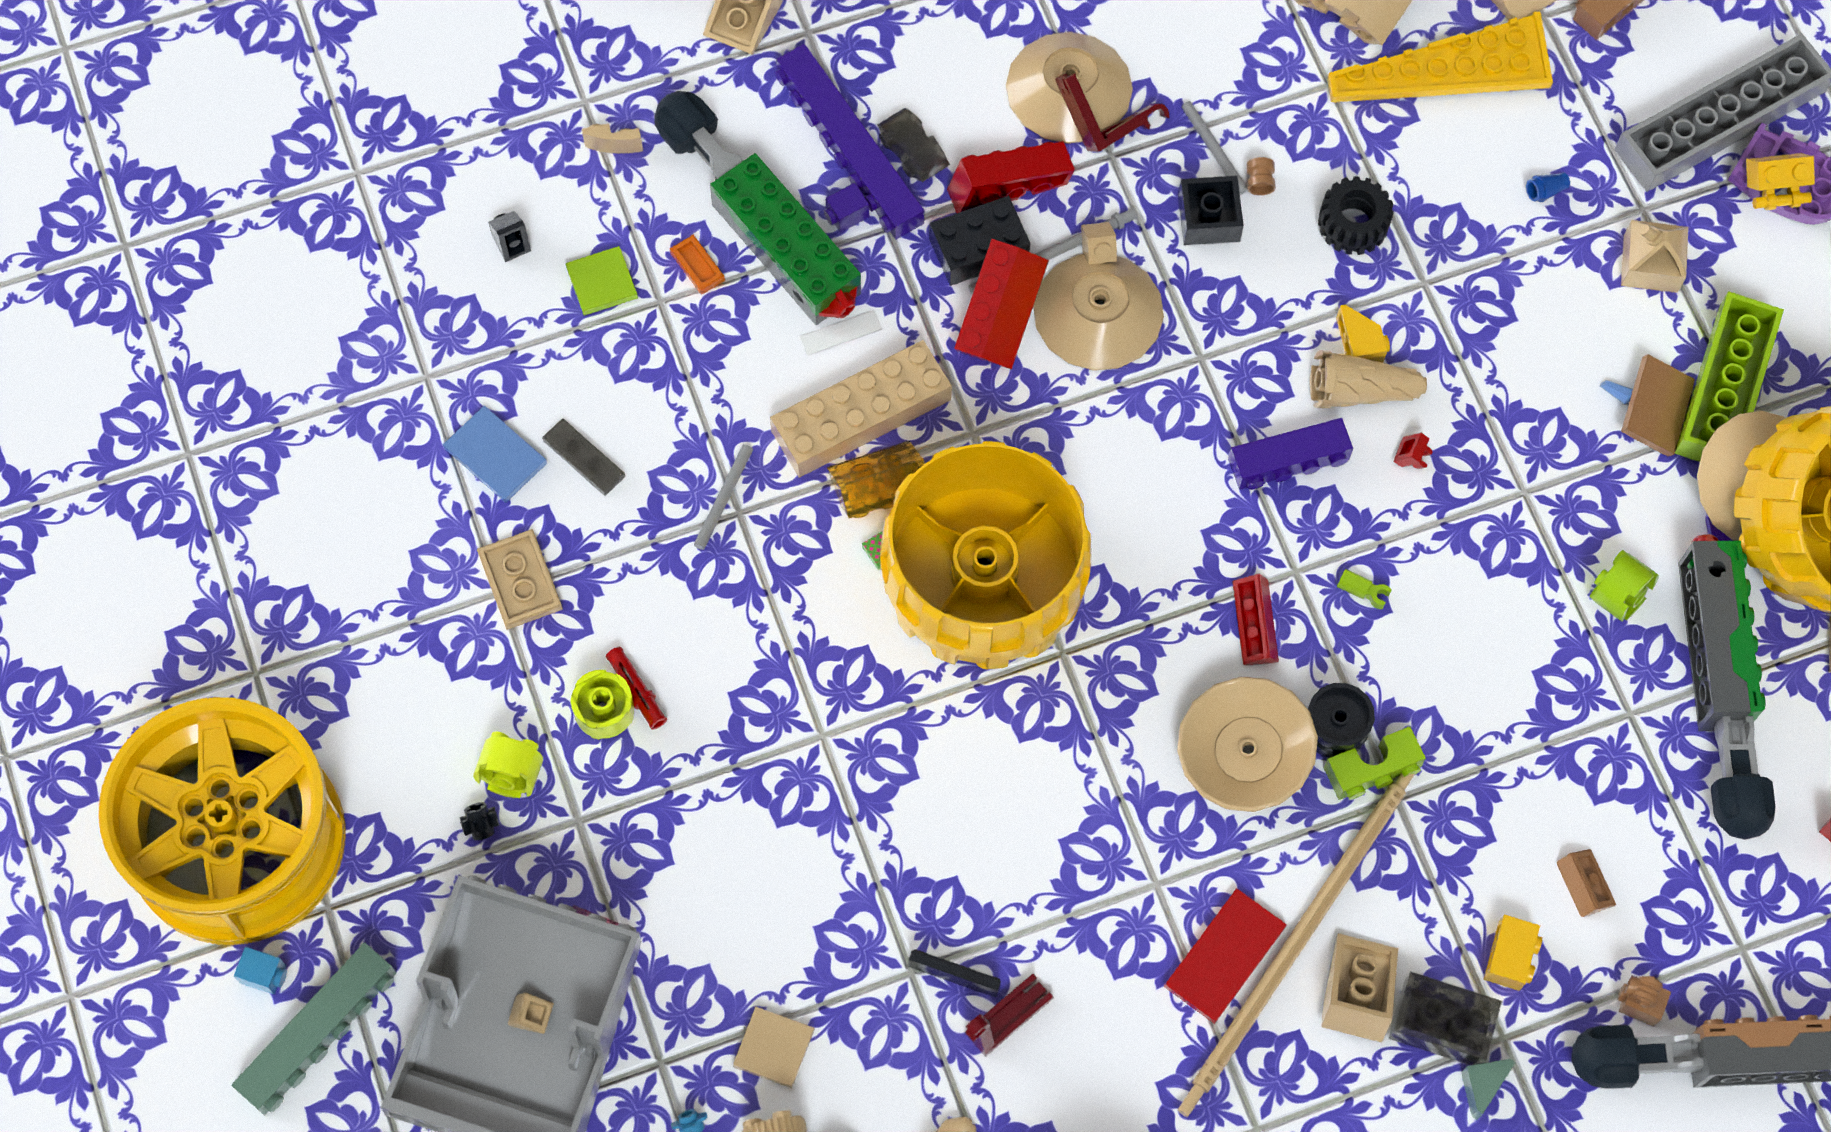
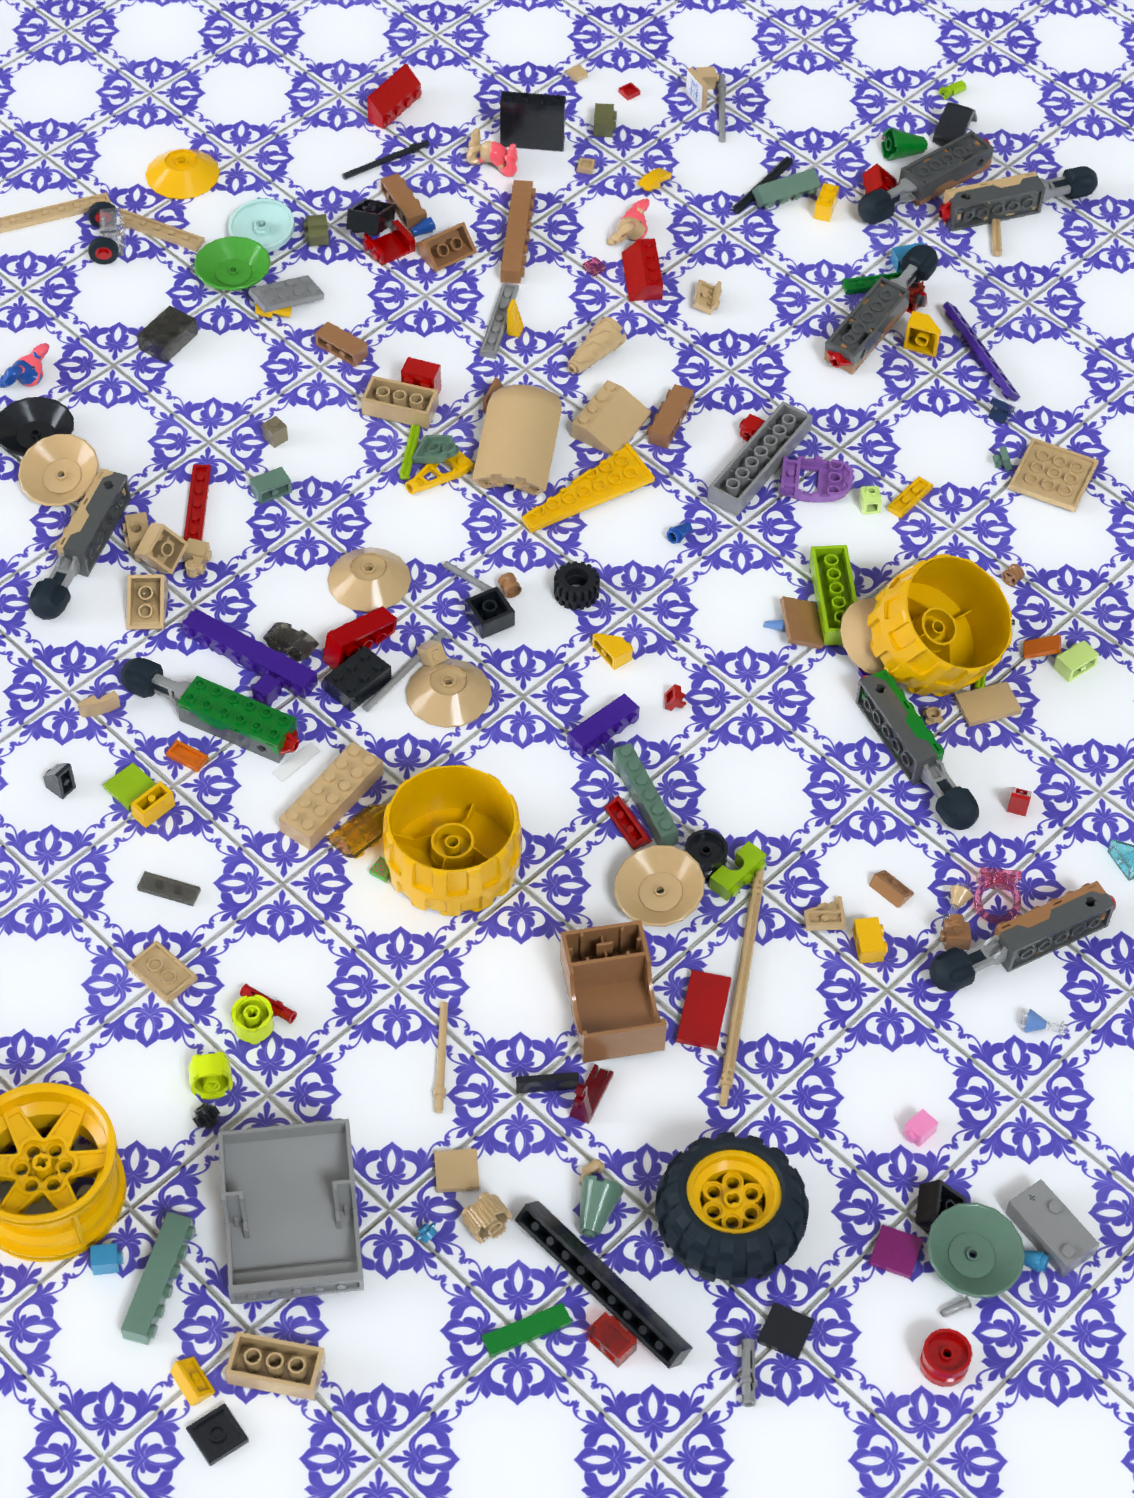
camera: 25 degrees left, 15 degrees down
(495, 454) = (110, 908): medium blue tile -> none
(530, 1013) = (298, 1201): tan slope -> none
(614, 323) = (152, 804): none -> yellow brick
(723, 497) = (269, 878): light grey bar -> none
(804, 919) = (440, 1091): none -> tan bar
(1001, 304) = (390, 705): red slope -> none
(1086, 124) = (391, 590): dark red hinge -> none
(1101, 882) = (611, 991): none -> medium nougat piece
(1297, 591) = (645, 795): none -> sand green brick
(1354, 380) = (624, 670): tan cone -> none
(1360, 988) = (792, 994): tan slope -> none
(1363, 588) = (683, 781): lime bar -> none
(1445, 1019) = (849, 989): clear smoke brick -> none
(1468, 888) = (826, 916): none -> tan wing
(1483, 1082) = (887, 1015): sand green slope -> none
(1624, 586) = (831, 721): lime brick -> none
(1654, 256) = (759, 546): tan piece -> none
(1679, 940) = (960, 895): none -> tan piece
(1735, 54) = (750, 426): none -> red brick
(1746, 944) = (998, 880): none -> clear pink tile
(1780, 172) = (808, 474): yellow brick -> none
(1787, 628) = (935, 712): none -> tan plate

